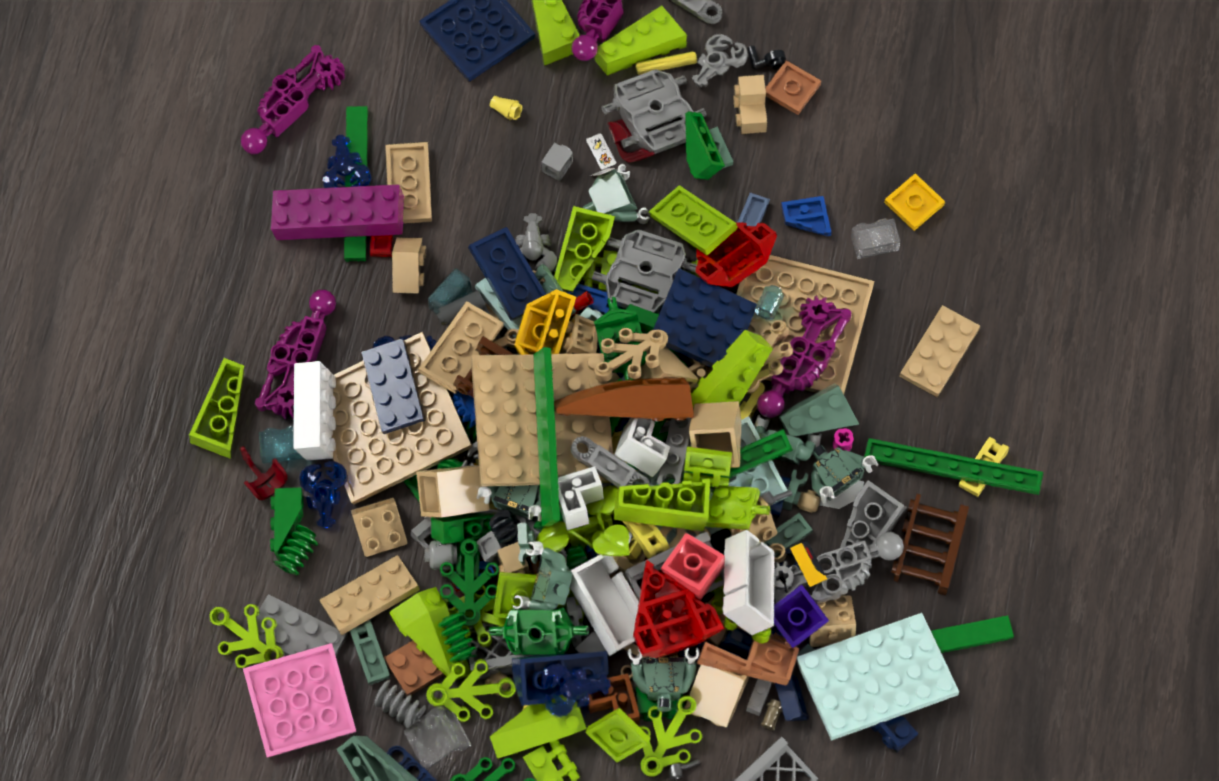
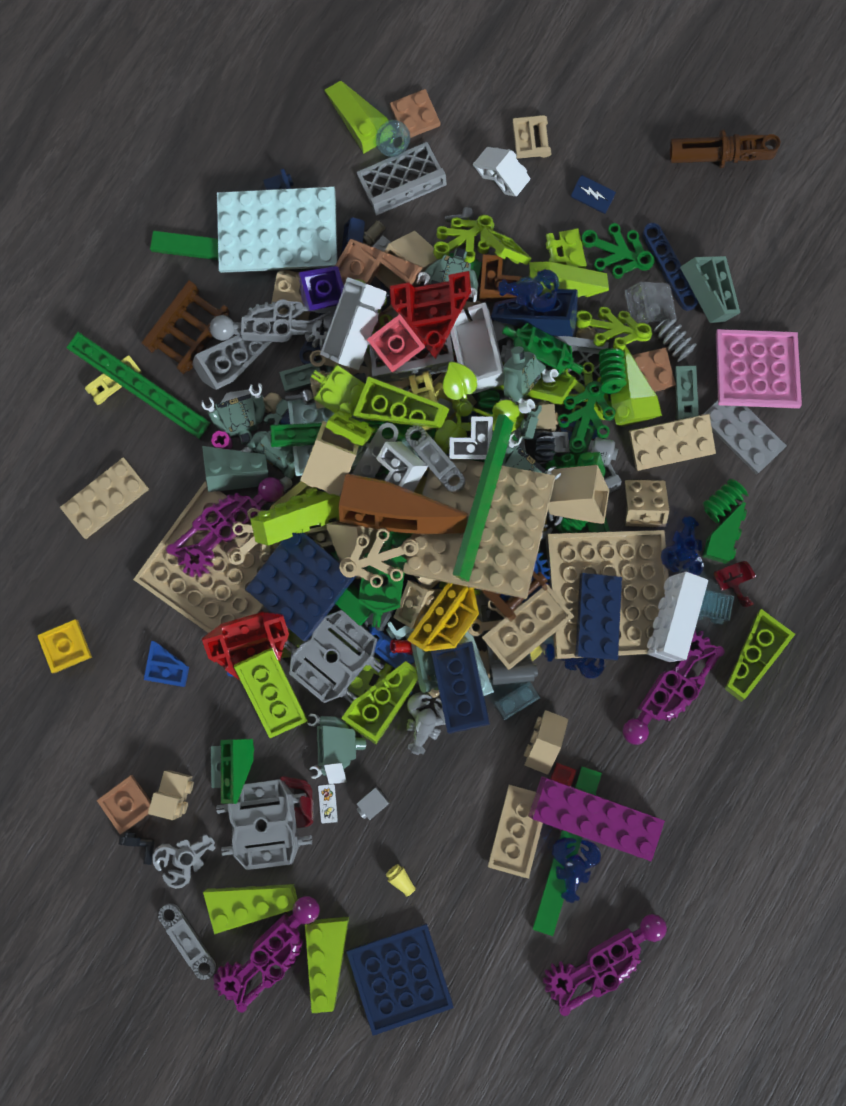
camera: 155 degrees left, 15 degrees up
(250, 639) = (785, 437): lime plant -> none
(666, 62) = (233, 875): light yellow axle -> none
(754, 210) = (213, 686): sand blue tile -> none
(769, 302) = (233, 586): clear light blue brick -> none
(808, 563) = (295, 332): yellow sticker -> none
(875, 238) = (114, 621): clear brick -> none

